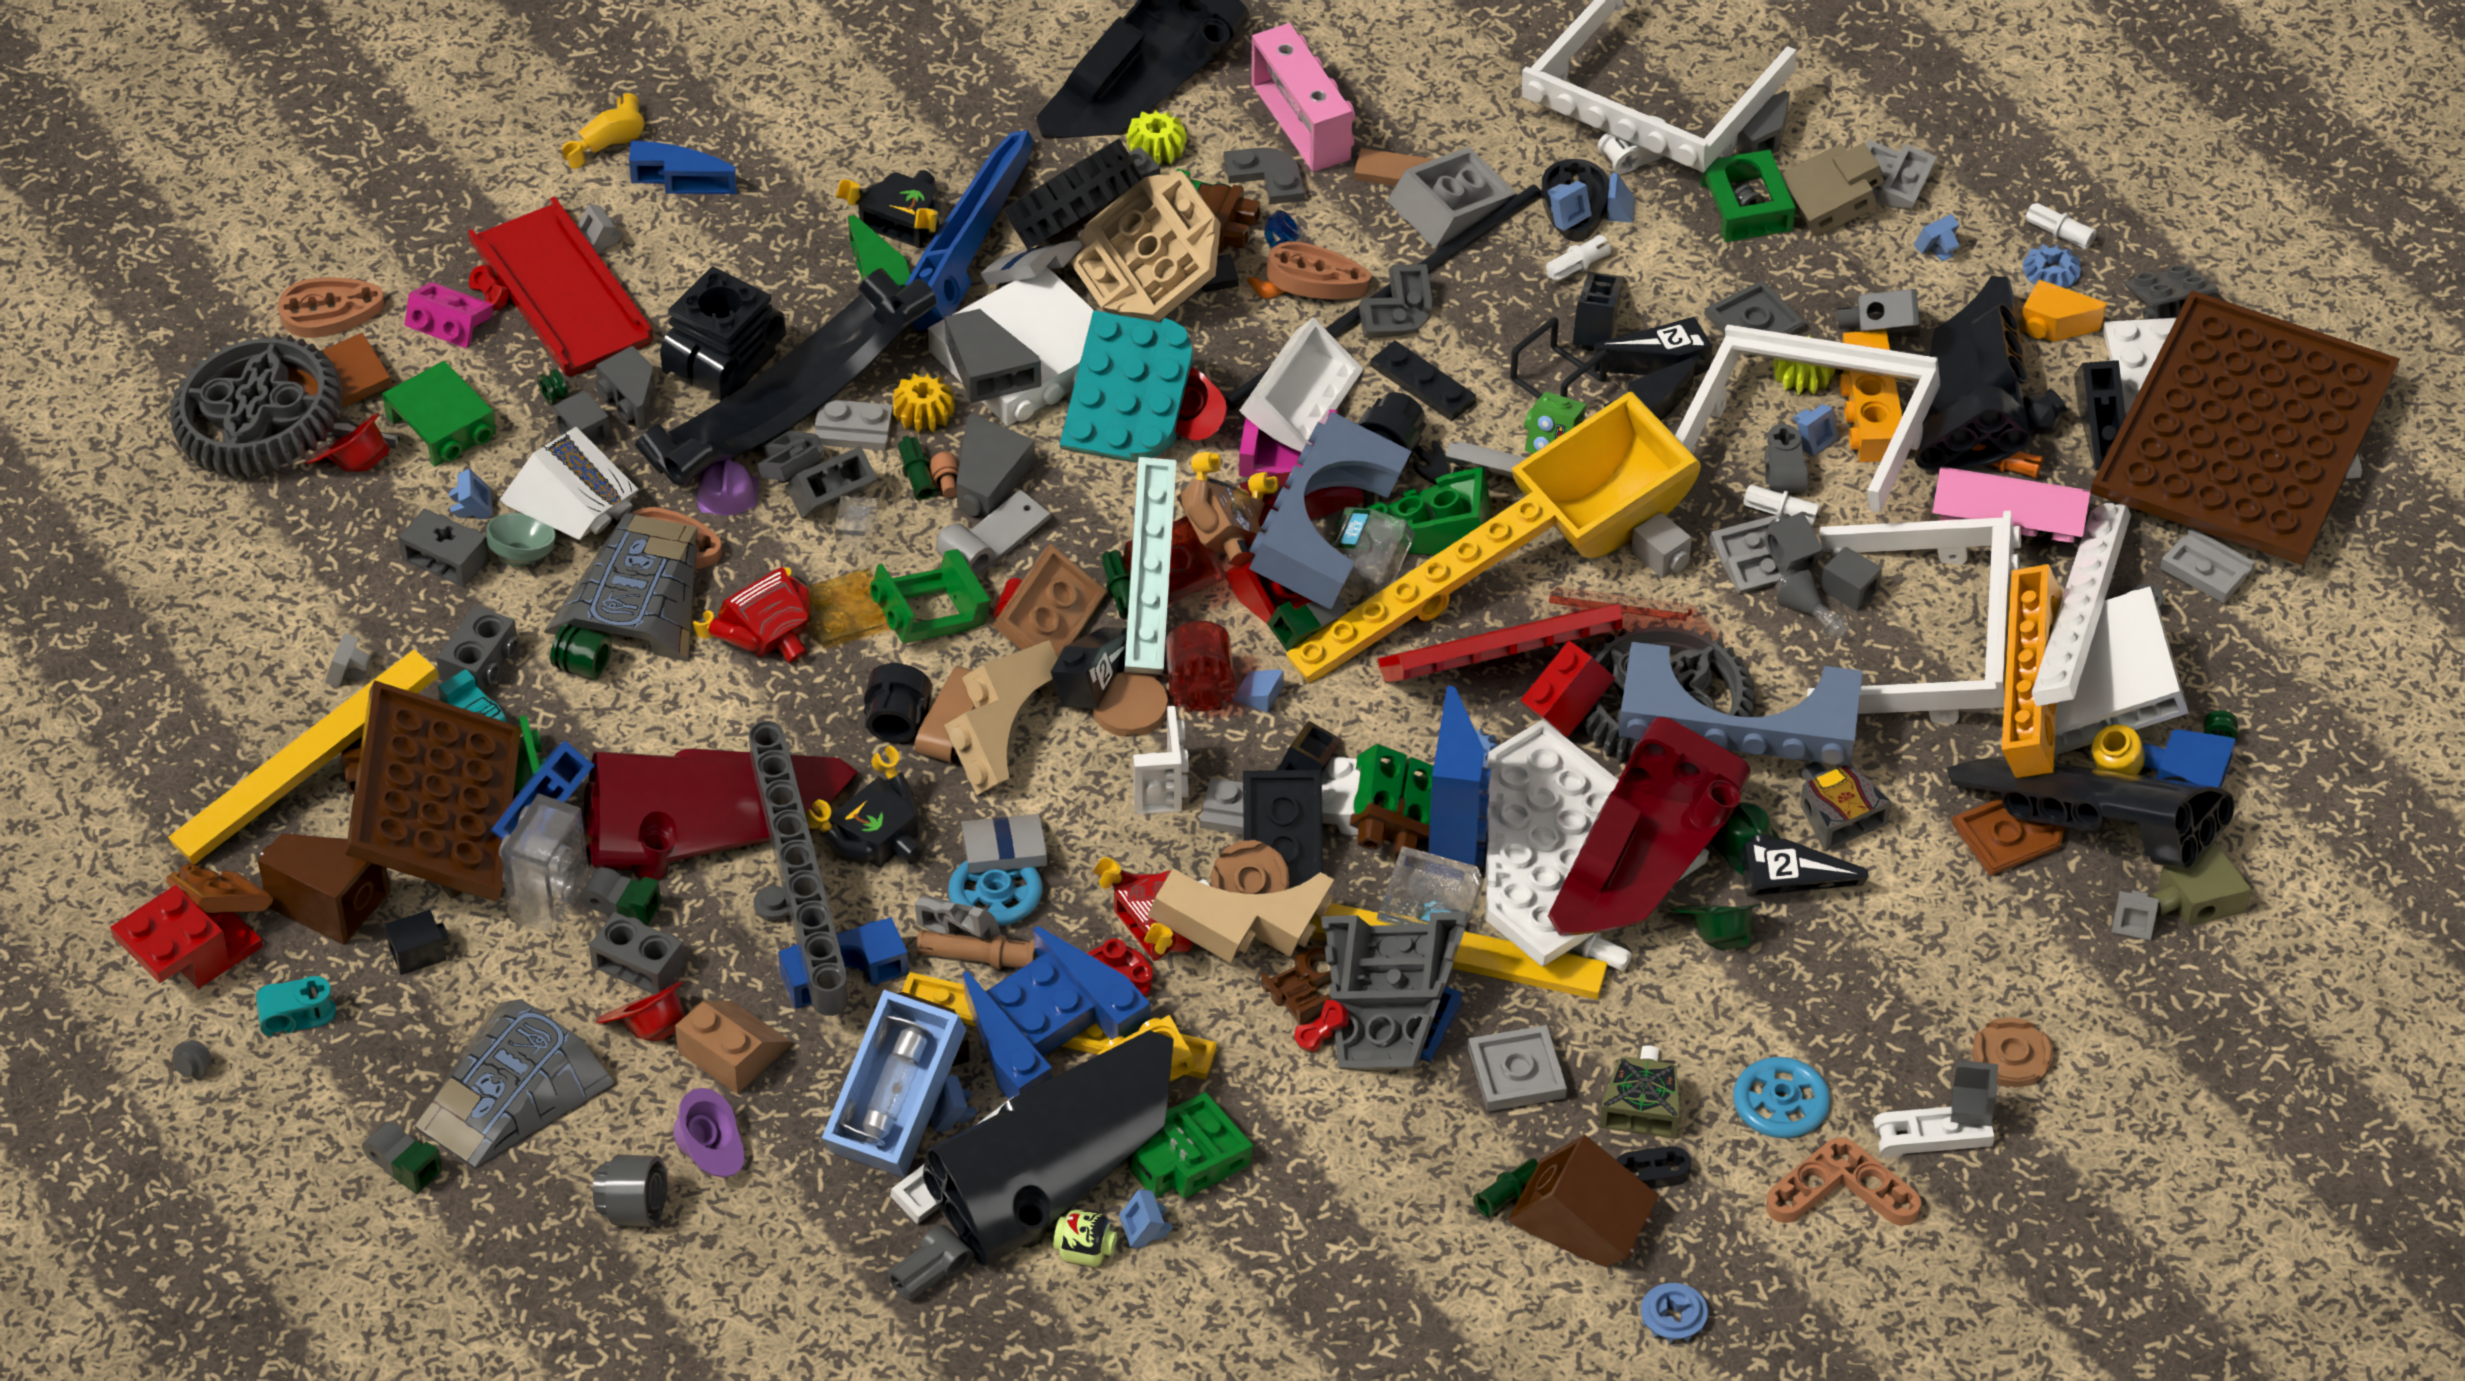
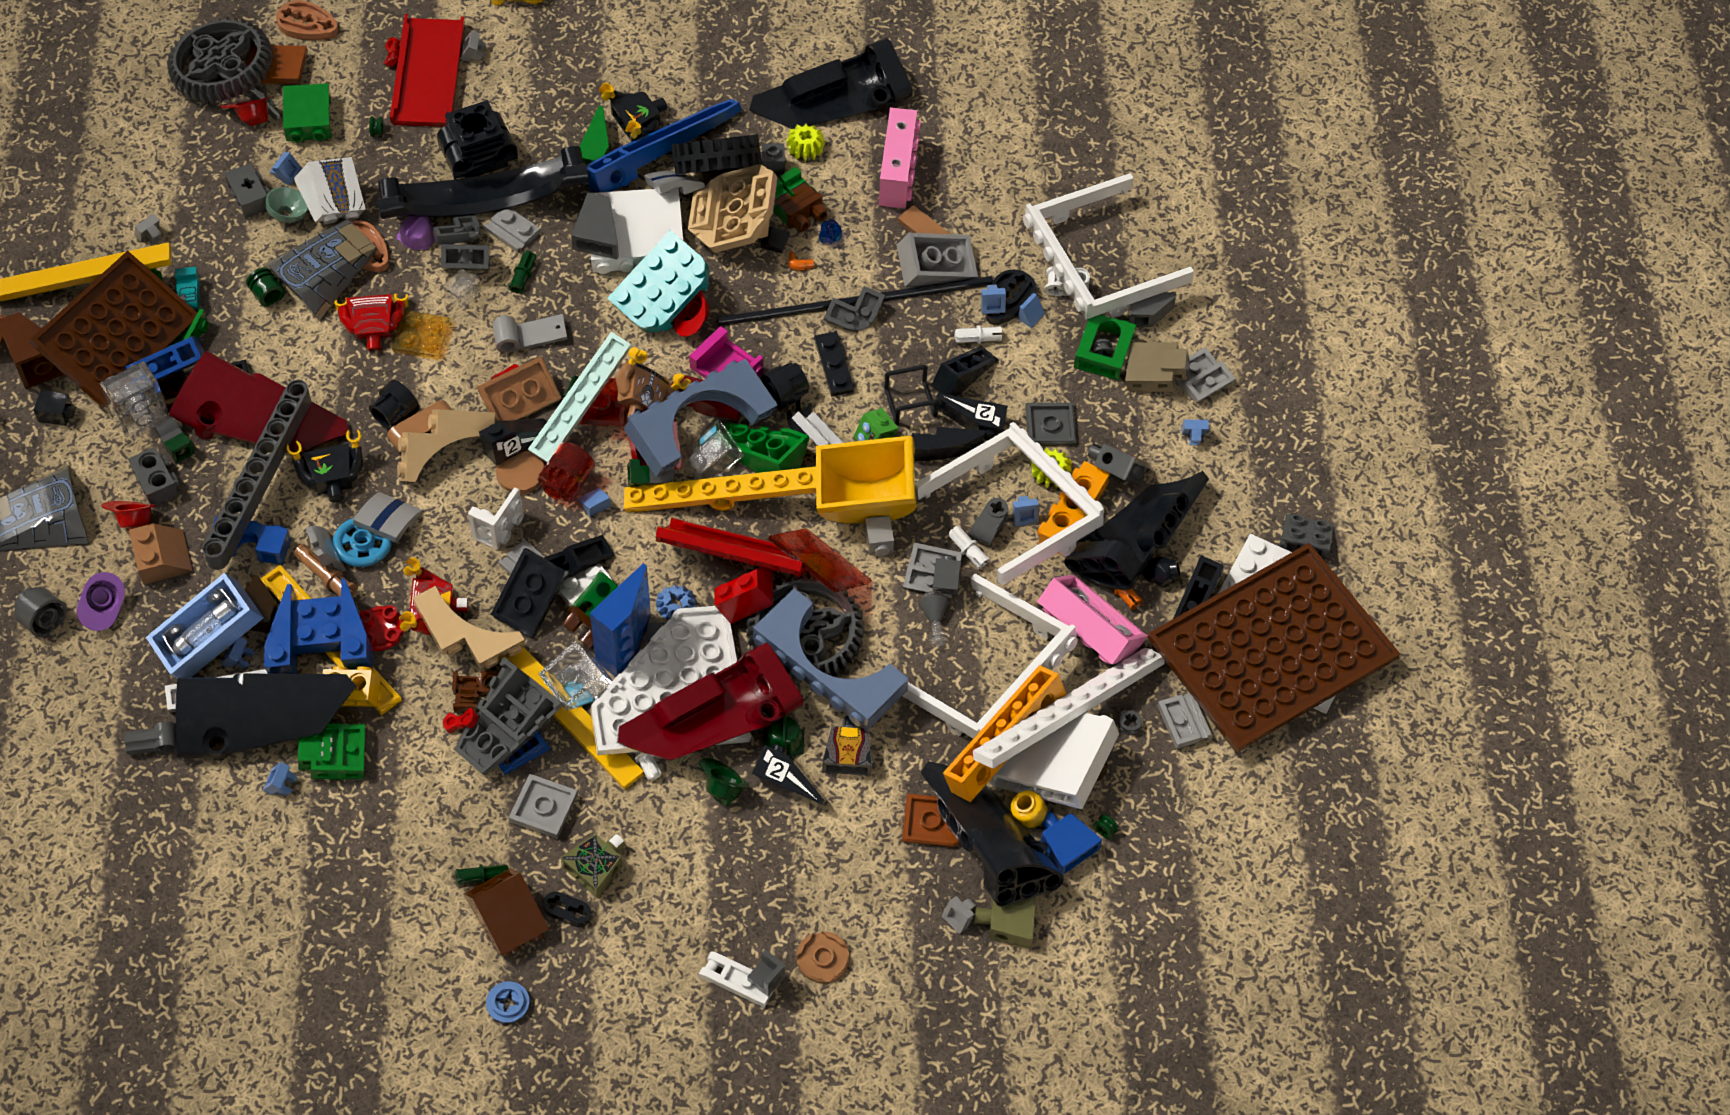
camera: 30 degrees right, 10 degrees up
(446, 313) = (359, 55): dark pink bracket -> none
(479, 646) = (217, 258): dark grey brick -> none
(586, 415) = (373, 154): dark grey brick -> none
(629, 384) = (414, 146): dark grey slope -> none
(680, 169) = (539, 32): blue slope -> none
(923, 402) = (554, 235): yellow gear -> none
(946, 467) = (536, 280): nougat cylinder -> none
(953, 577) = (446, 337): green panel -> none
(990, 465) = (557, 291): dark grey slope -> none
(1084, 1238) = (240, 771): yellowish green head -> none
(1250, 869) = (492, 610): medium nougat tile -> none
(1267, 164) = (856, 192): dark grey plate -> none
(1302, 386) = (758, 332): white slope -> none
(1316, 272) = (831, 278): nougat piece -> none
(1779, 1124) = (684, 925): dark azure plate -> none
(1837, 1172) = (662, 972): nougat beam -> none
(1851, 578) = (968, 614): dark grey panel -> none
(2060, 313) = (1226, 514): light orange slope -> none
(2061, 225) = (1275, 459): white axle -> none
(2064, 275) = (1244, 489): medium blue gear -> none

